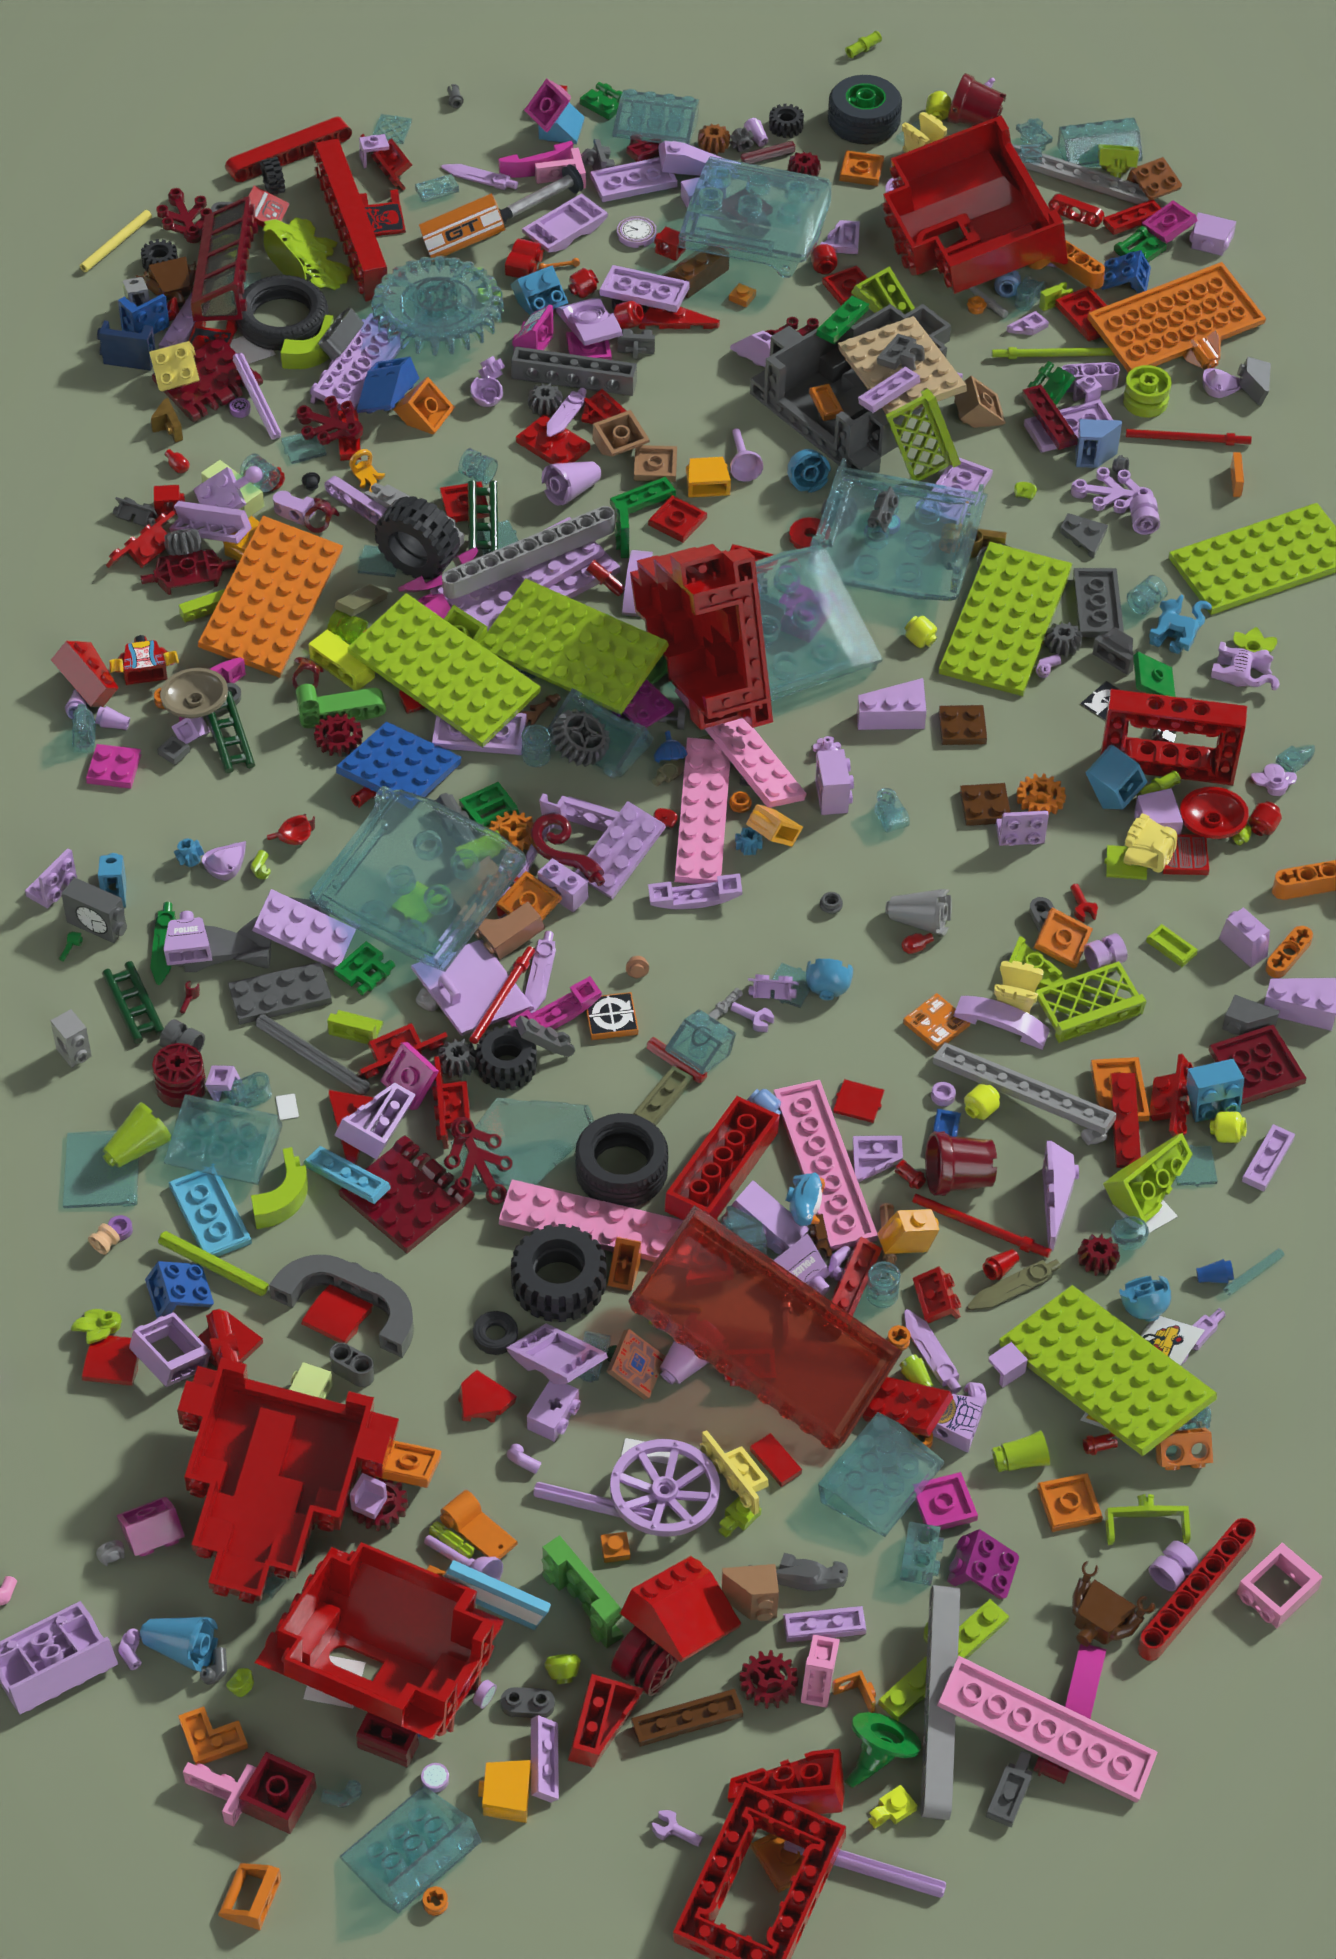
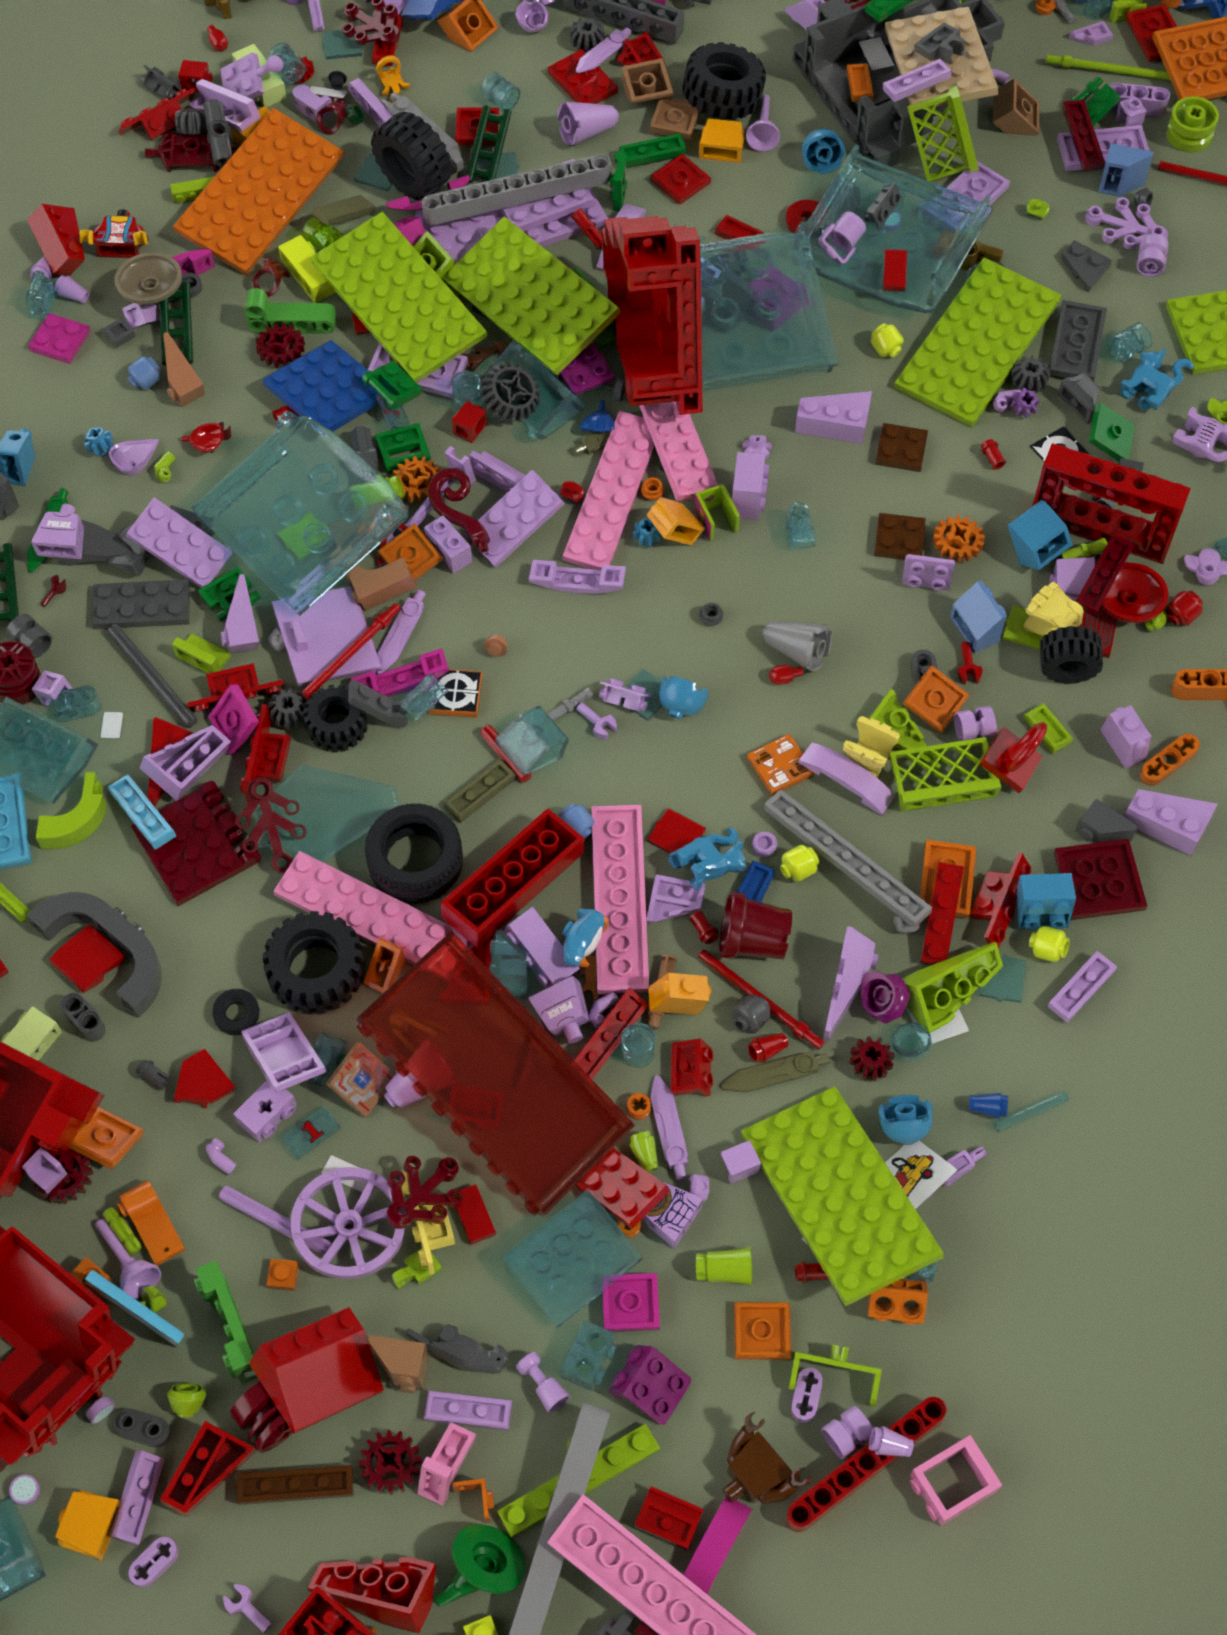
camera: 15 degrees right, 10 degrees up
(212, 782) = (144, 373): none -> medium blue head
(214, 548) = (216, 123): none -> dark grey piece
(251, 779) = (182, 380): none -> nougat slope
(302, 494) = (328, 92): none -> white sticker
(340, 510) = (354, 114): none -> dark green tile
(387, 993) = (240, 627): none -> lavender slope
(433, 1401) = (148, 1071): none -> dark grey pin
(463, 750) = (396, 381): none -> green plate
(468, 774) = (395, 418): none -> clear light blue tile
(546, 772) = (469, 421): none -> red brick
(582, 1813) = (148, 1557): none -> lavender beam
(585, 1022) = (423, 697): none -> clear light blue hips
(601, 1422) = (310, 1133): none -> clear light blue tile
(695, 421) = (724, 81): none -> black tyre
(717, 1464) = (421, 1195): none -> dark red plant
(816, 803) = (721, 498): none -> lime piece
(833, 373) = (876, 53): none -> white sticker
(854, 543) = (842, 235): none -> lavender piece
(894, 1590) = (548, 1390): none -> lavender piece
(897, 1113) = (707, 860): none -> dark azure animal
(911, 566) = (895, 270): none -> red tile
(977, 1238) = (751, 1014): none -> dark grey head
(1036, 1670) = (669, 1518): none -> red plate
(1049, 715) = (991, 450): none -> red pin
(1066, 665) = (1025, 403): none -> medium lavender gear
(1081, 858) = (979, 617): none -> medium blue slope
(1094, 1198) = (884, 996): none -> magenta hat
(1131, 1546) = (800, 1393): none -> lavender beam
(1151, 974) = (1014, 758): none -> red tile
(1176, 875) = (1071, 654): none -> black tyre
(1186, 800) = (1104, 574): none -> dark red plate
(1212, 1560) = (890, 1443): none -> lavender cone

